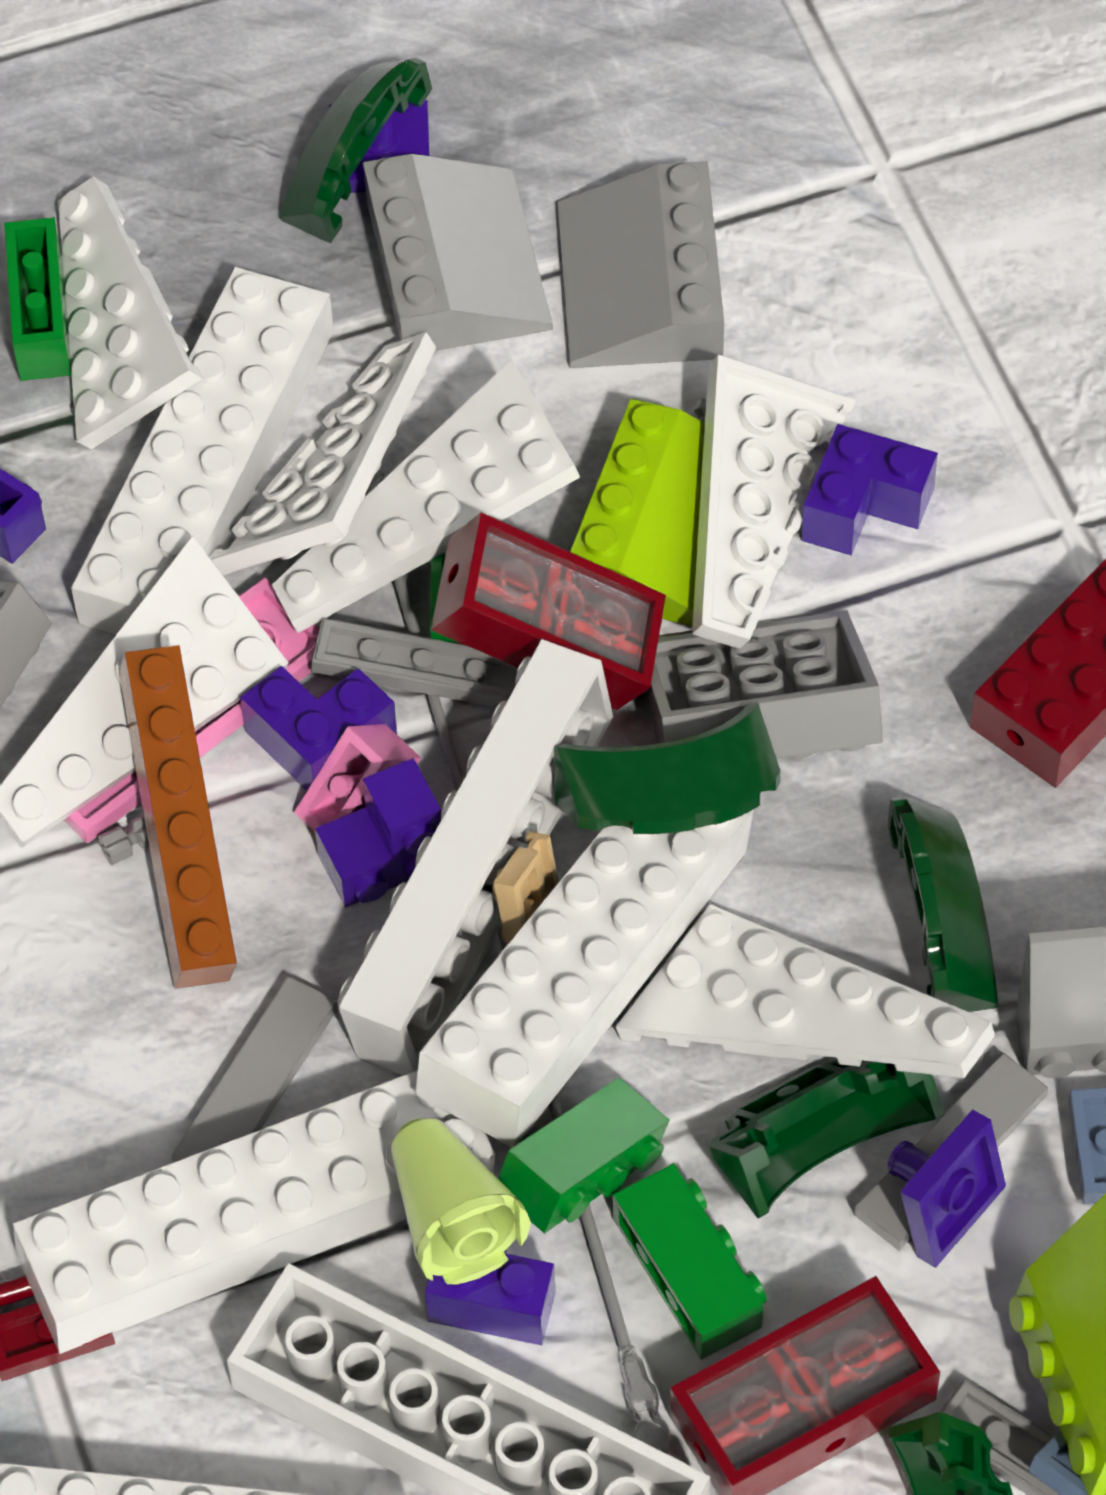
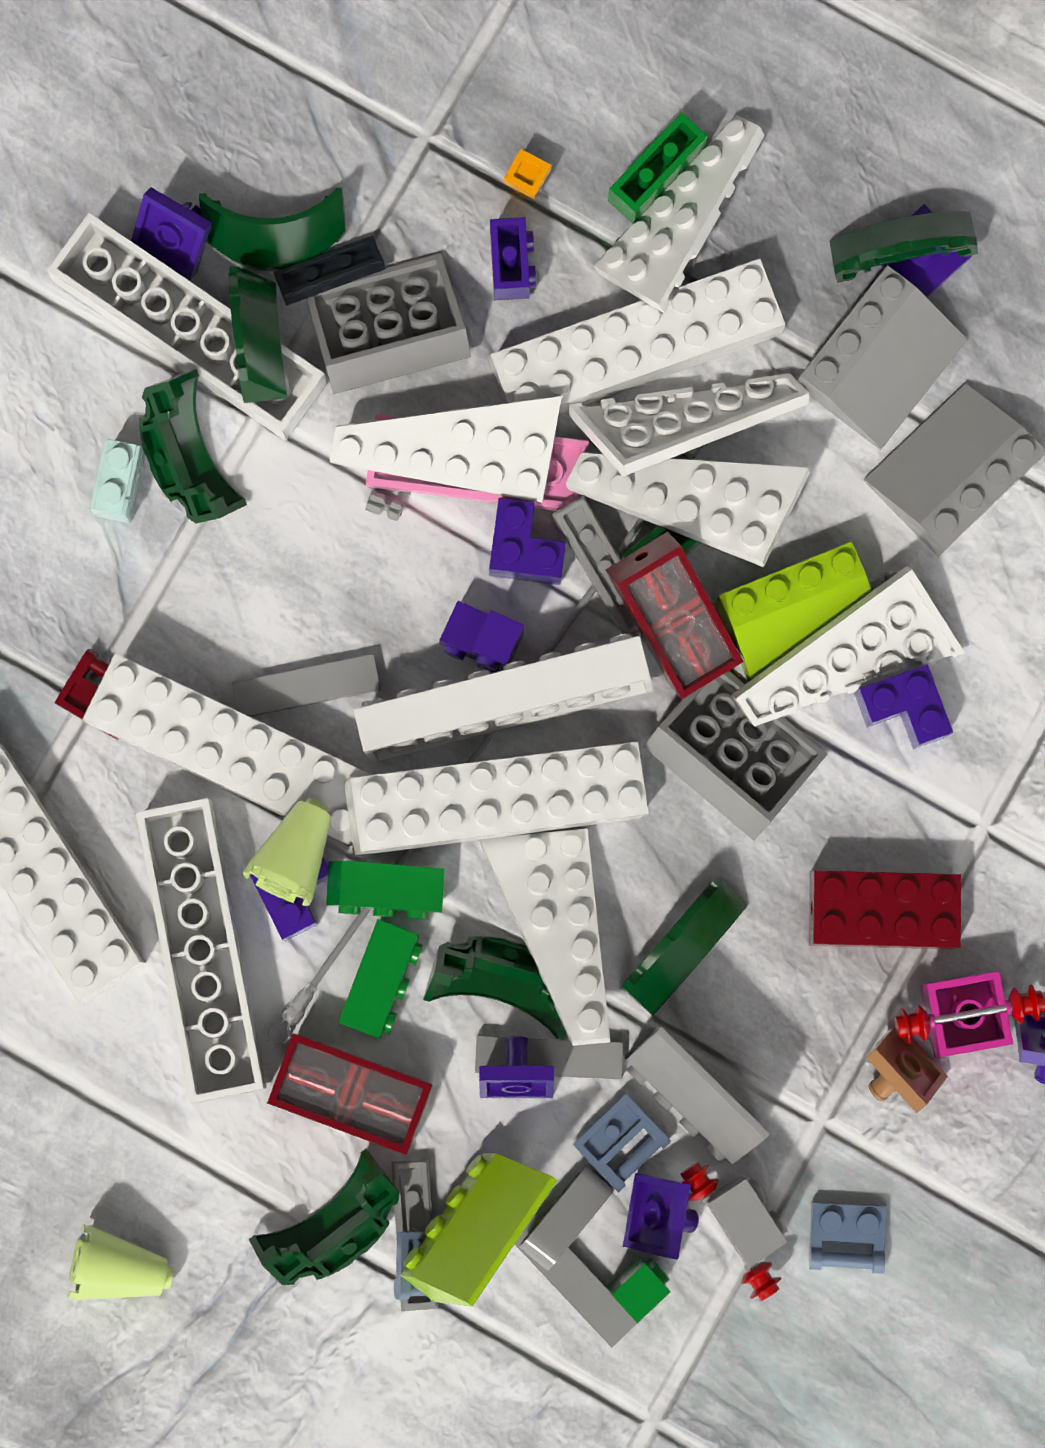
camera: 45 degrees right, 25 degrees up
(177, 817) = (401, 530): dark orange brick -> none
(339, 783) = (509, 593): bright pink slope -> none
(524, 883) = (503, 741): tan plate -> none
(669, 783) = (616, 774): dark green windscreen -> none

